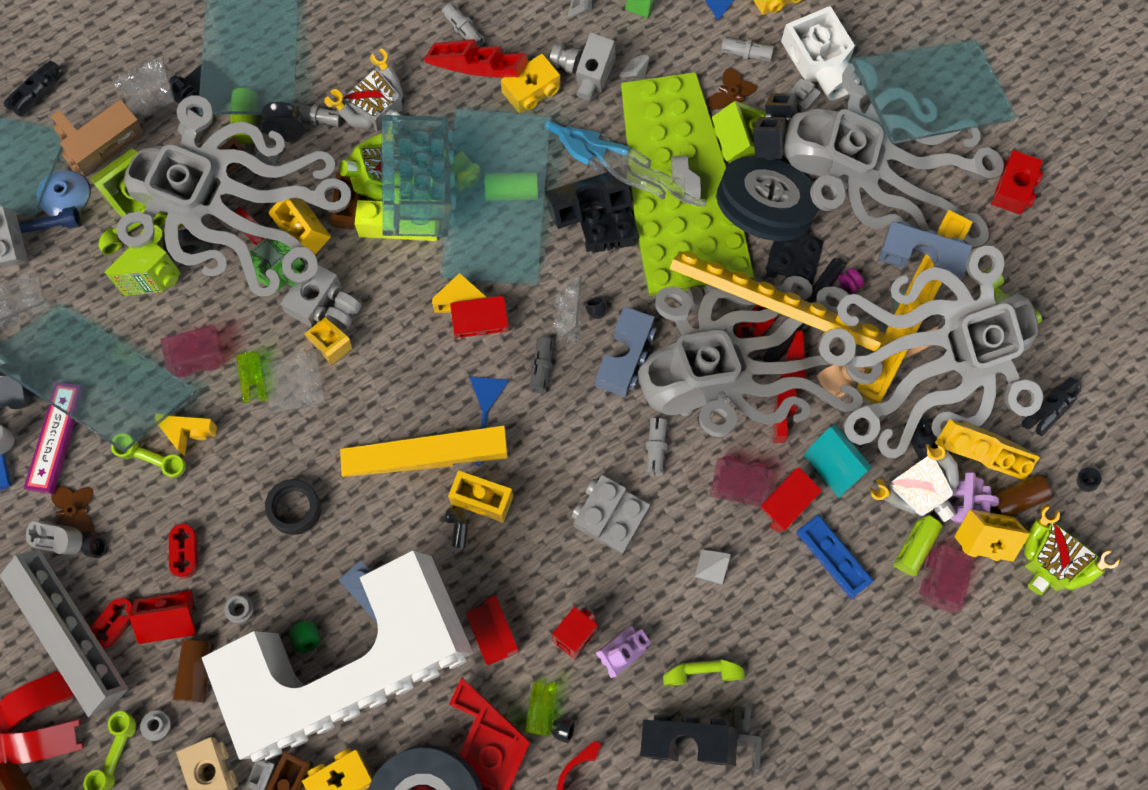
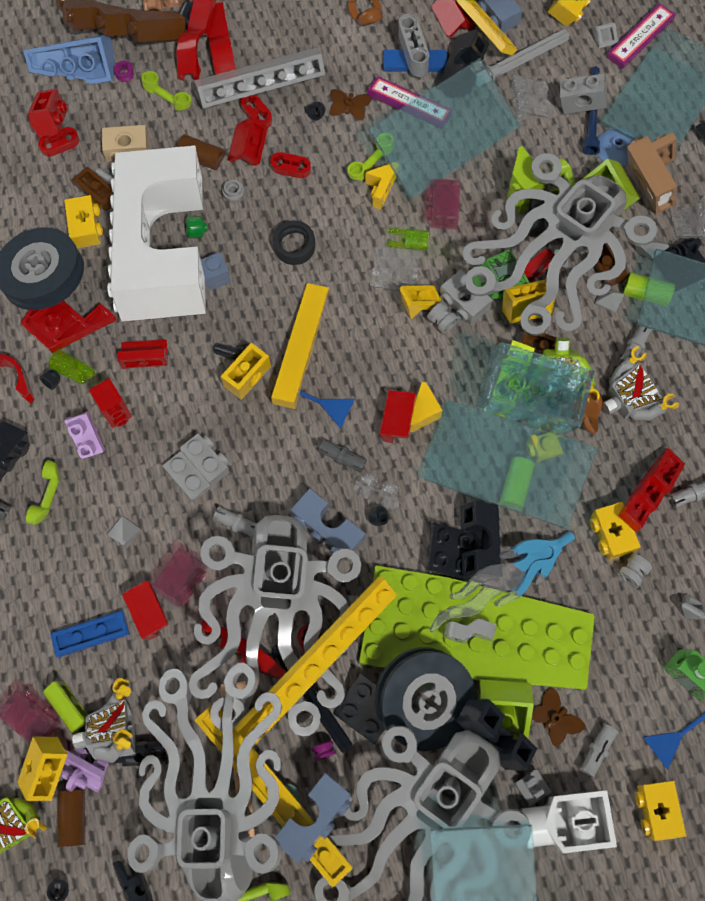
camera: 110 degrees right, 0 degrees up
(54, 537) = (331, 86): light grey piece -> none
(164, 725) = (176, 126): light grey plate -> none
(284, 120) = (631, 313): black piece -> none
(595, 65) = (621, 597): light grey torso -> none
(635, 67) = (607, 634): light grey slope -> none
(837, 460) = (159, 662): teal slope -> none
(988, 449) = (118, 804): yellow slope -> none

